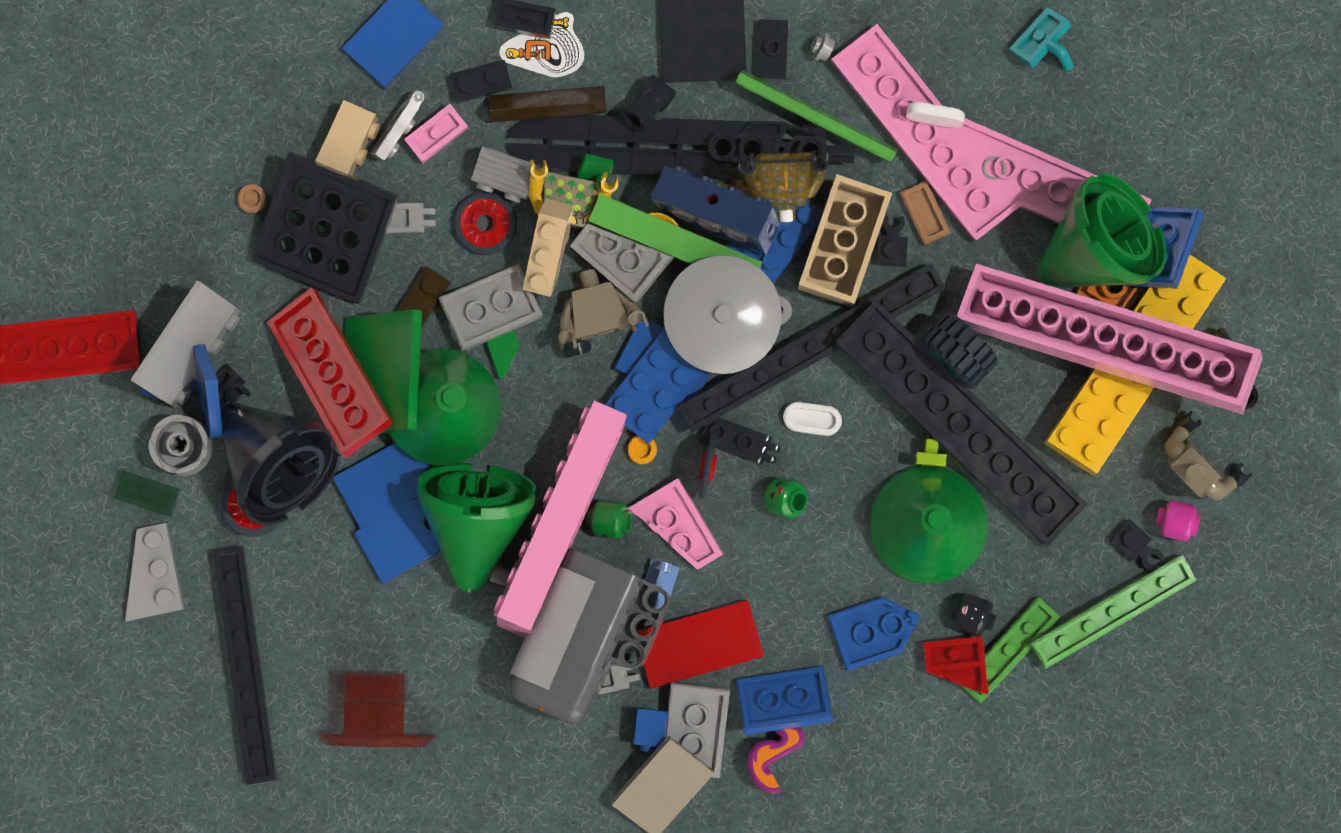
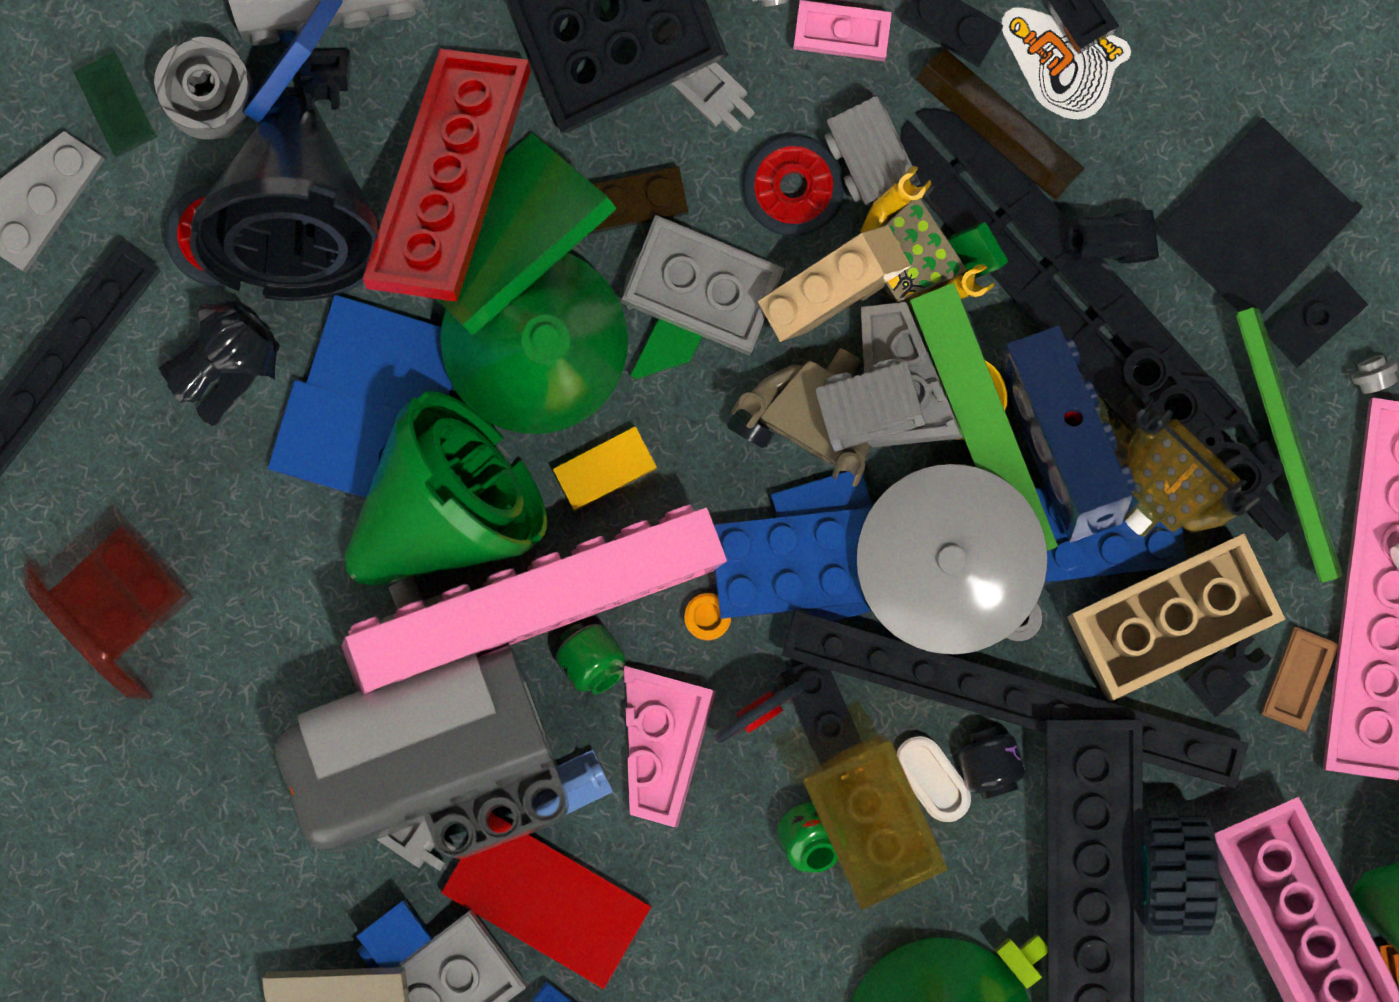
camera: 45 degrees right, 0 degrees up
(312, 549) = (229, 346): none -> black piece
(530, 431) = (605, 469): none -> yellow tile
(618, 283) = (869, 404): none -> light grey brick
(806, 461) = (874, 821): none -> clear yellow slope
(830, 386) = (991, 763): none -> black head

